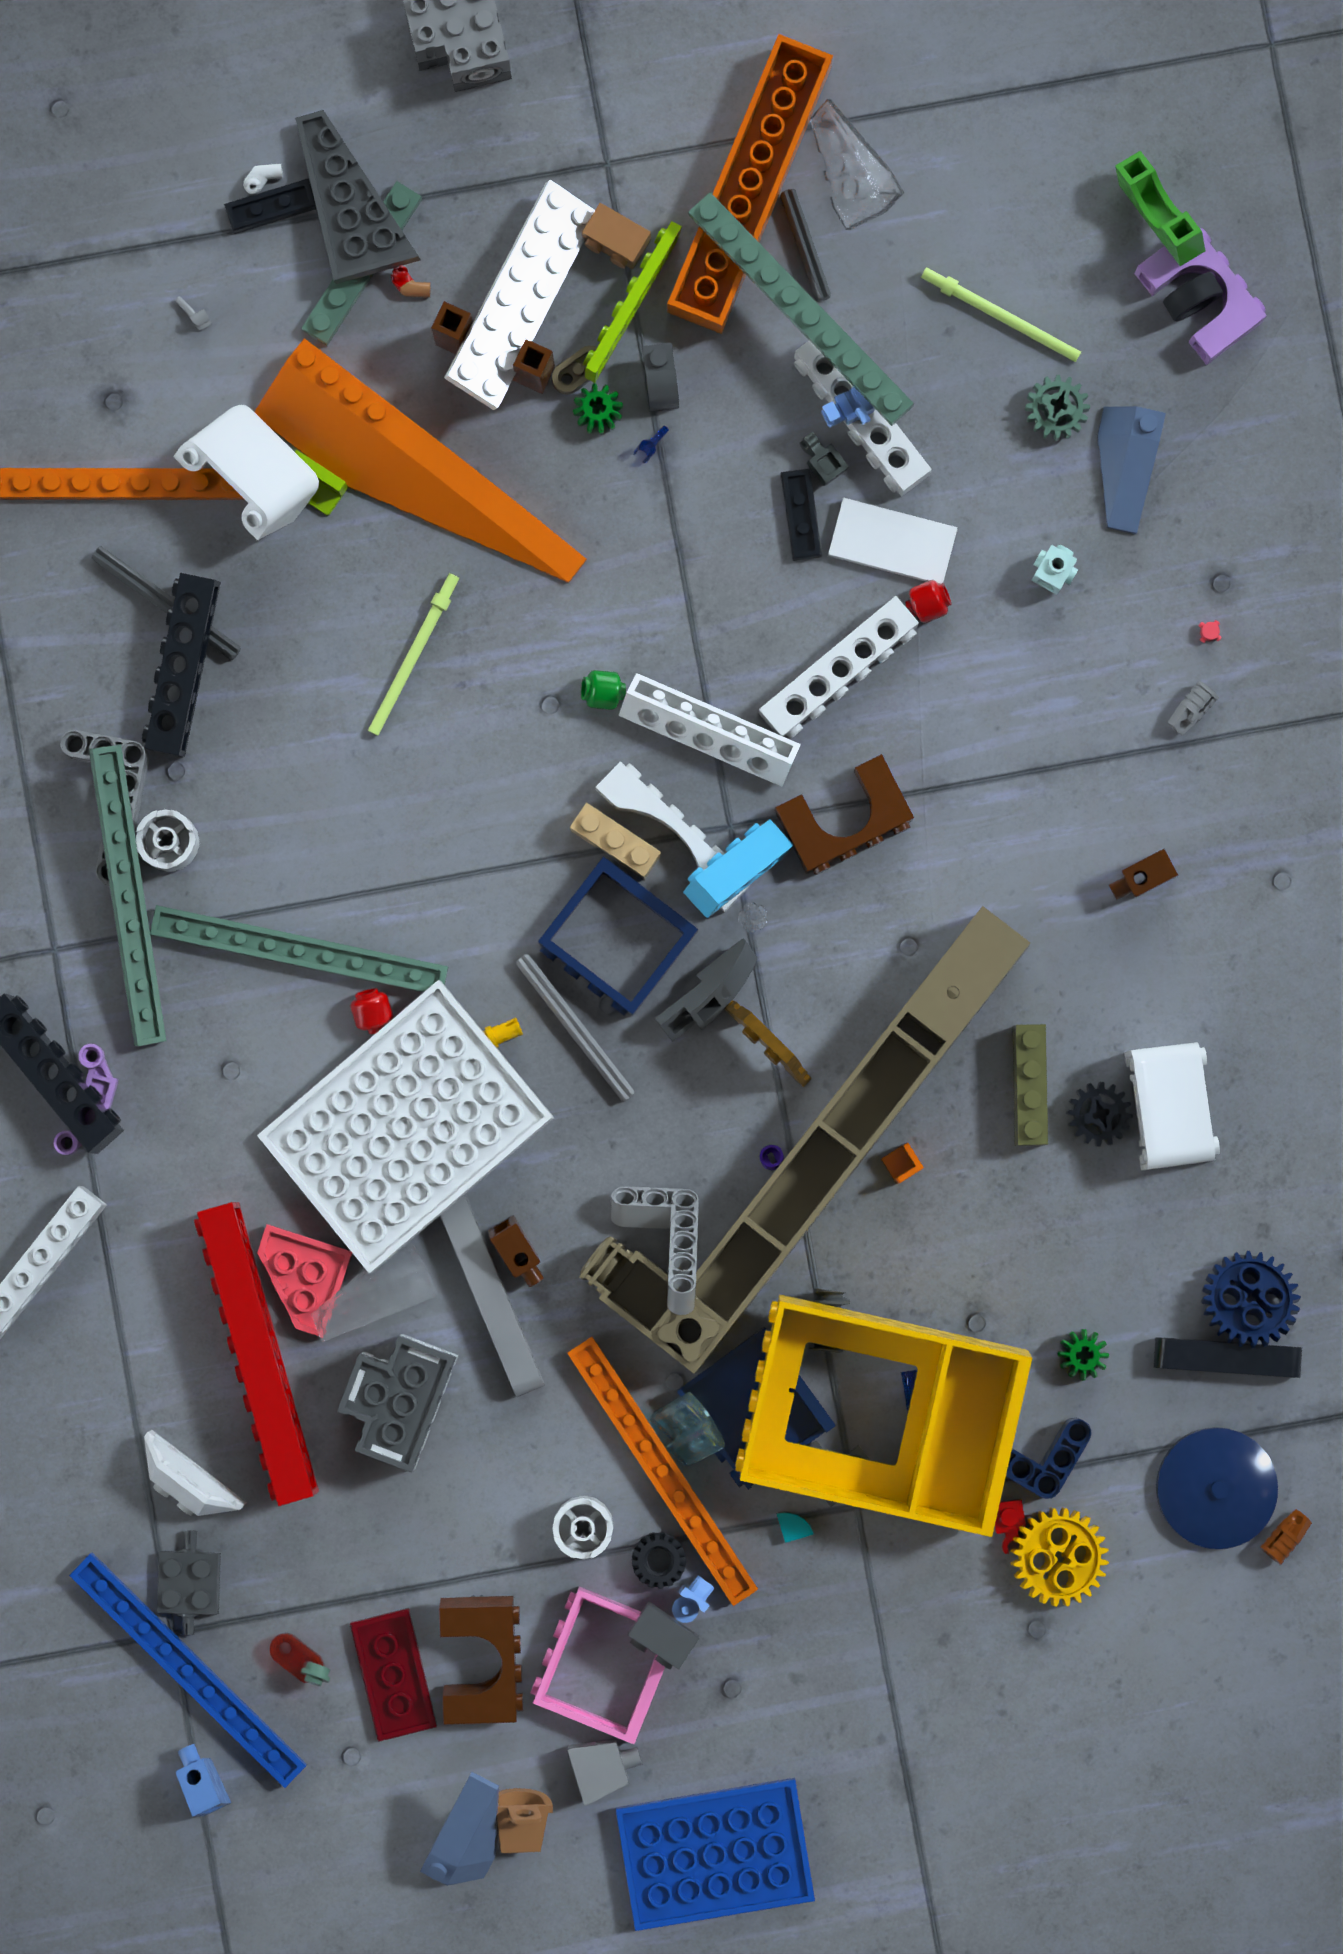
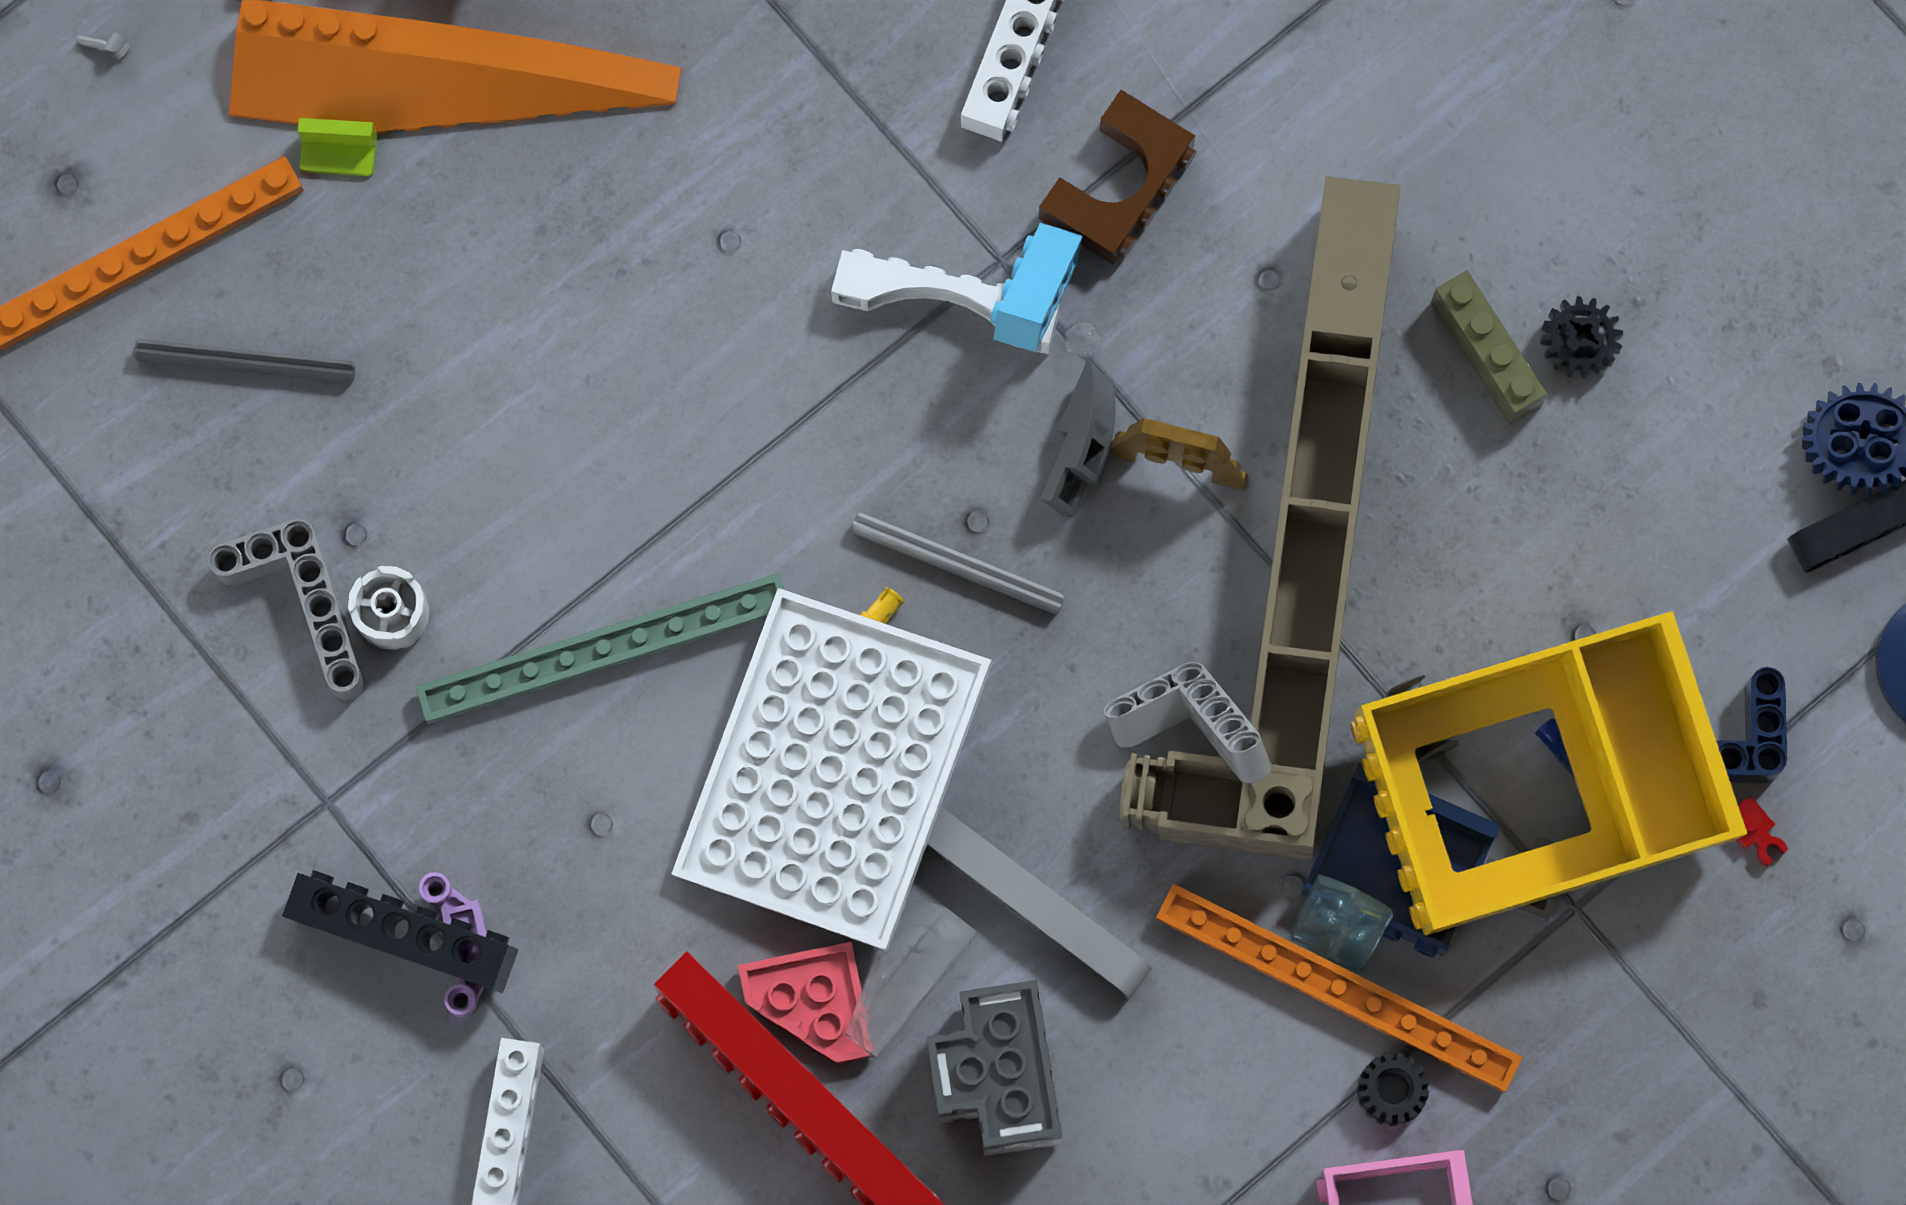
camera: 25 degrees left, 10 degrees down
(127, 895) = (378, 688): sand green plate -> none
(194, 653) = (335, 499): black brick -> none
(256, 466) = (264, 150): white windscreen -> none
(371, 1010) = (721, 667): red head -> none
(439, 604) = (548, 200): yellowish green bar -> none
(510, 1240) = (1019, 829): reddish brown torso -> none
(596, 984) = (955, 382): dark blue window -> none
(600, 1527) = (1307, 1088): white brick -> none
(602, 689) = (778, 190): green head -> none
(615, 840) = (862, 335): tan arch -> none
(662, 1636) = (1449, 1162): dark grey brick -> none
(686, 1607) = (1457, 1106): light blue hips -> none
(709, 729) = (904, 157): white brick -> none
(777, 1153) = (1259, 574): dark purple hinge -> none
(793, 1526) = (1519, 968): teal tile -> none
(902, 1163) = (1401, 506): orange panel -> none
(1080, 1573) = (1864, 839): yellow gear -> none
(1089, 1362) = (1734, 593): green gear -> none
(1158, 869) = (1485, 47): reddish brown torso -> none
(1172, 1105) = (1654, 284): white windscreen -> none

